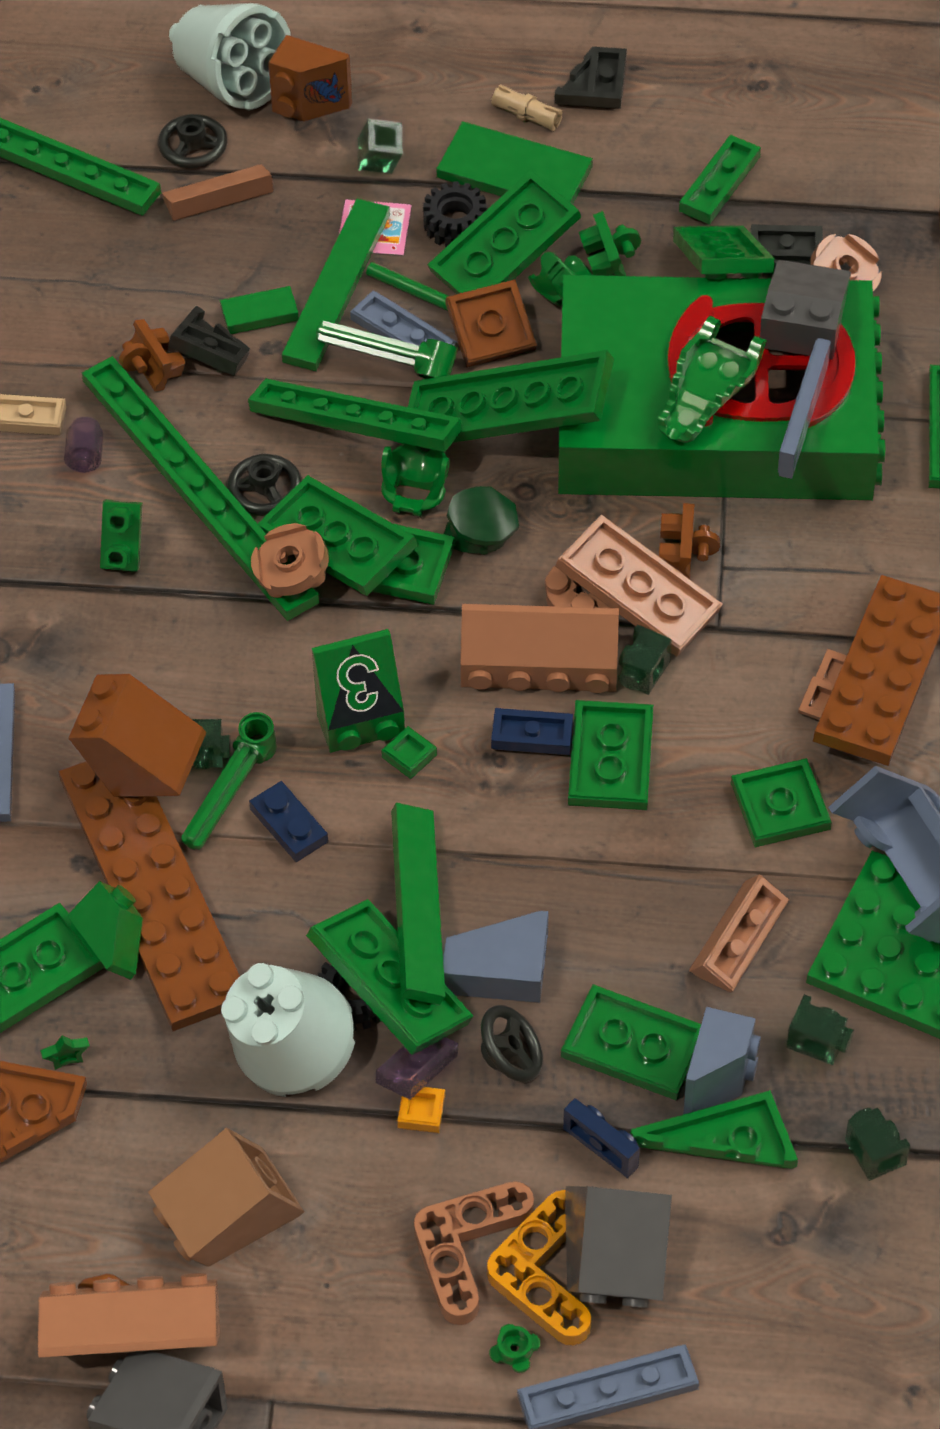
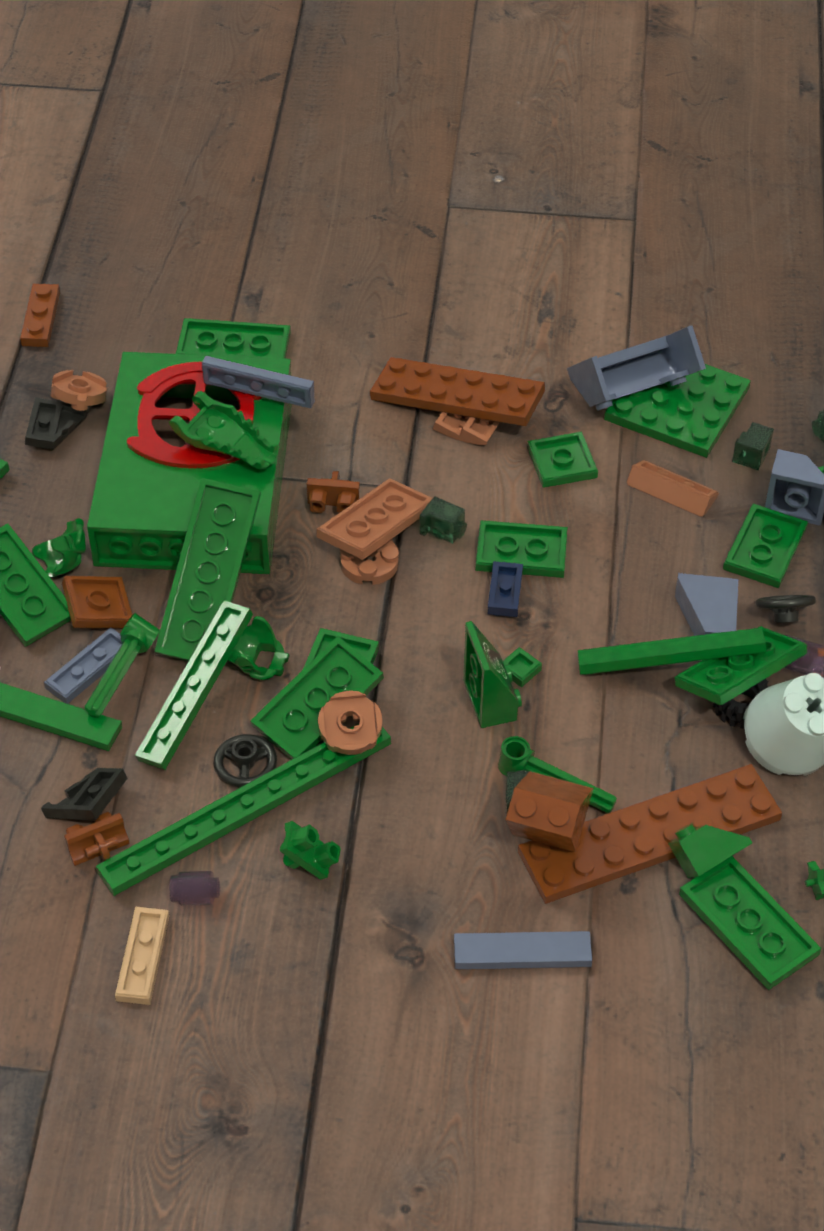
camera: 90 degrees left, 5 degrees down
(259, 310) = (50, 764): green tile -> none
(288, 821) = (586, 743): dark blue plate -> none
(407, 285) = (44, 656): green bar -> none
(481, 520) = (303, 614): dark green hat -> none
(539, 647) = (441, 576): nougat slope -> none
(599, 236) = (32, 522): green hips -> none
(723, 251) = (63, 443): green plate -> none
(803, 306) = (156, 377): dark grey slope -> none

